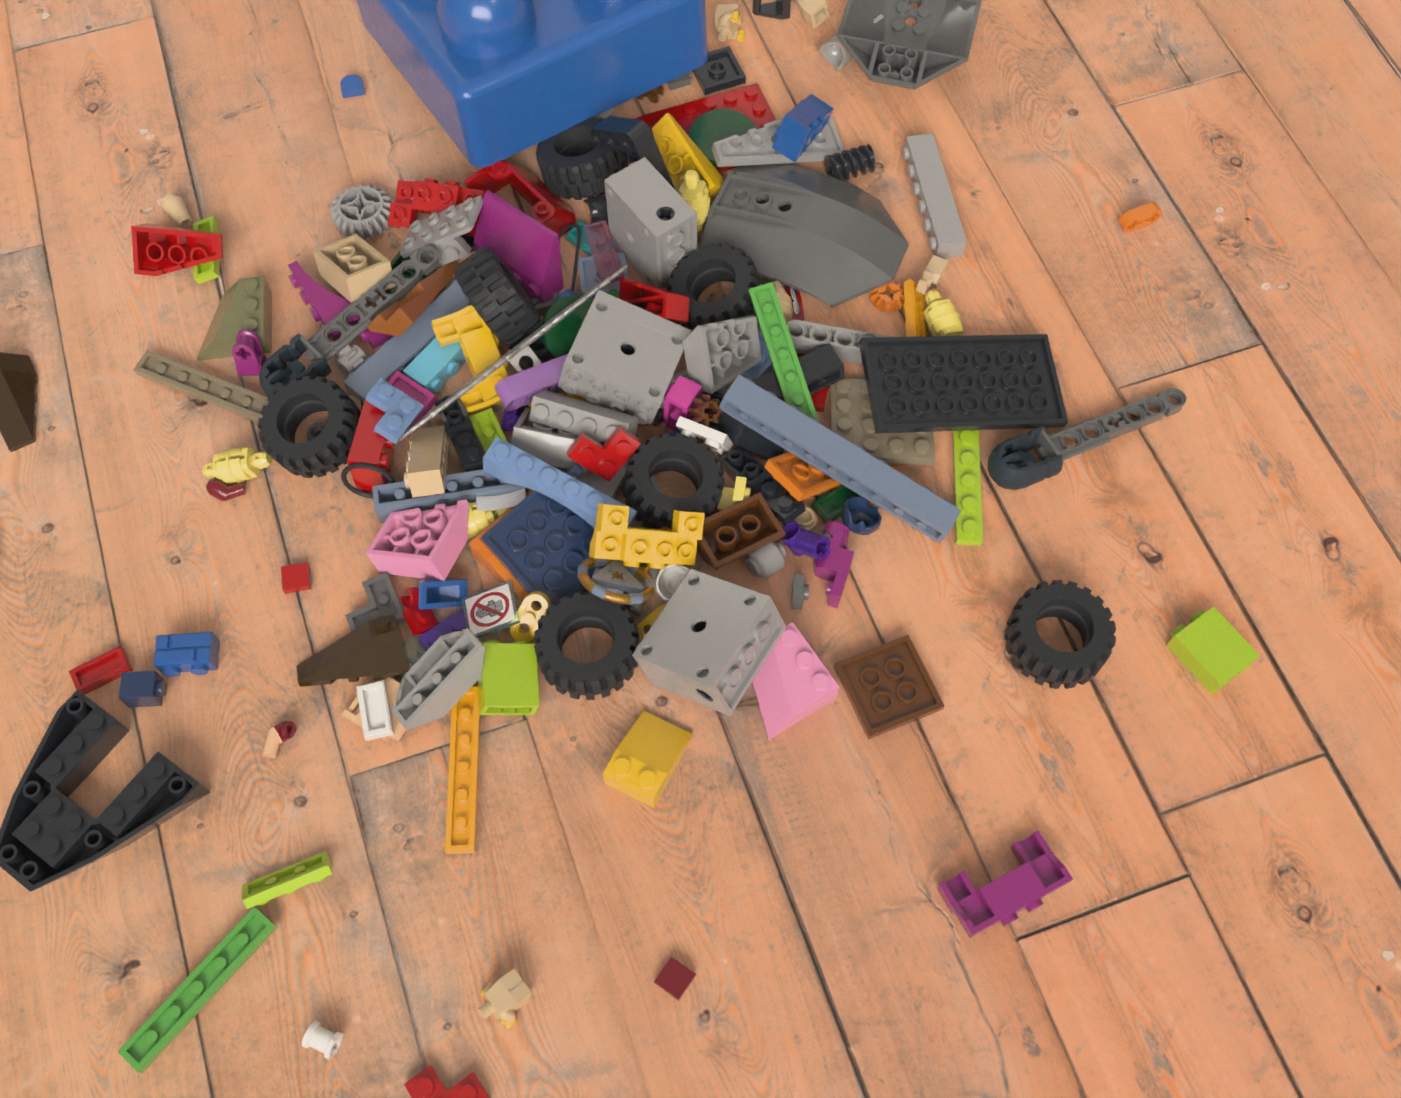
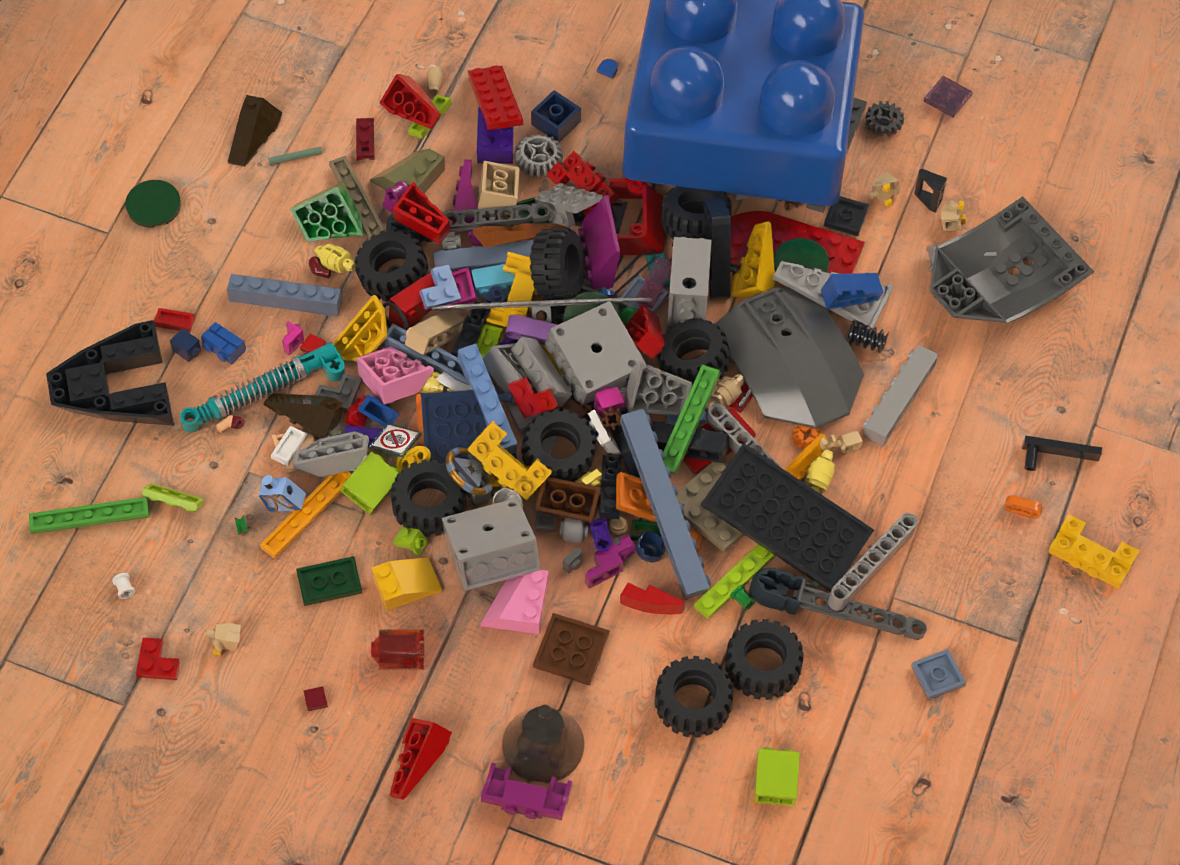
camera: 40 degrees right, 5 degrees down
(86, 390) = (295, 155): none -> sand green bar
(153, 320) = (365, 138): none -> dark red plate
(185, 424) = (328, 215): none -> green wedge
(211, 547) = (284, 295): none -> sand blue brick
(265, 182) = (495, 97): none -> red plate
(266, 586) = (293, 338): none -> dark pink bracket
(296, 221) = (494, 144): none -> dark purple brick
(301, 347) = (421, 215): none -> red wedge
(303, 615) = (296, 369): none -> teal piece
(344, 160) = (556, 116): none -> dark blue brick
(348, 521) = (364, 332): none -> yellow wedge
(400, 846) = (241, 525): none -> green bush
(415, 775) = (281, 494): none -> light blue torso
(456, 377) = (497, 295): none -> dark blue bracket
(560, 827) = (329, 581): none -> dark green tile
(608, 706) = (411, 539): none -> lime bracket
(697, 196) = (736, 288): light yellow piece -> none
(720, 841) = (399, 649): none -> clear red cylinder
(732, 572) = (545, 522): none -> dark grey plate
(851, 939) = (423, 746): none -> red wedge
(913, 570) = (651, 600): none -> red slope
(960, 815) = (543, 744): none -> clear smoke cone
(995, 496) = (743, 598): none -> green bush
(1078, 367) = (880, 553): none -> light grey beam
(1093, 154) = (1035, 444): none -> black piece
(1096, 514) = (769, 636): none -> black tyre
(1237, 427) = (938, 674): none -> sand blue plate
(1241, 218) = (1091, 556): none -> yellow bracket

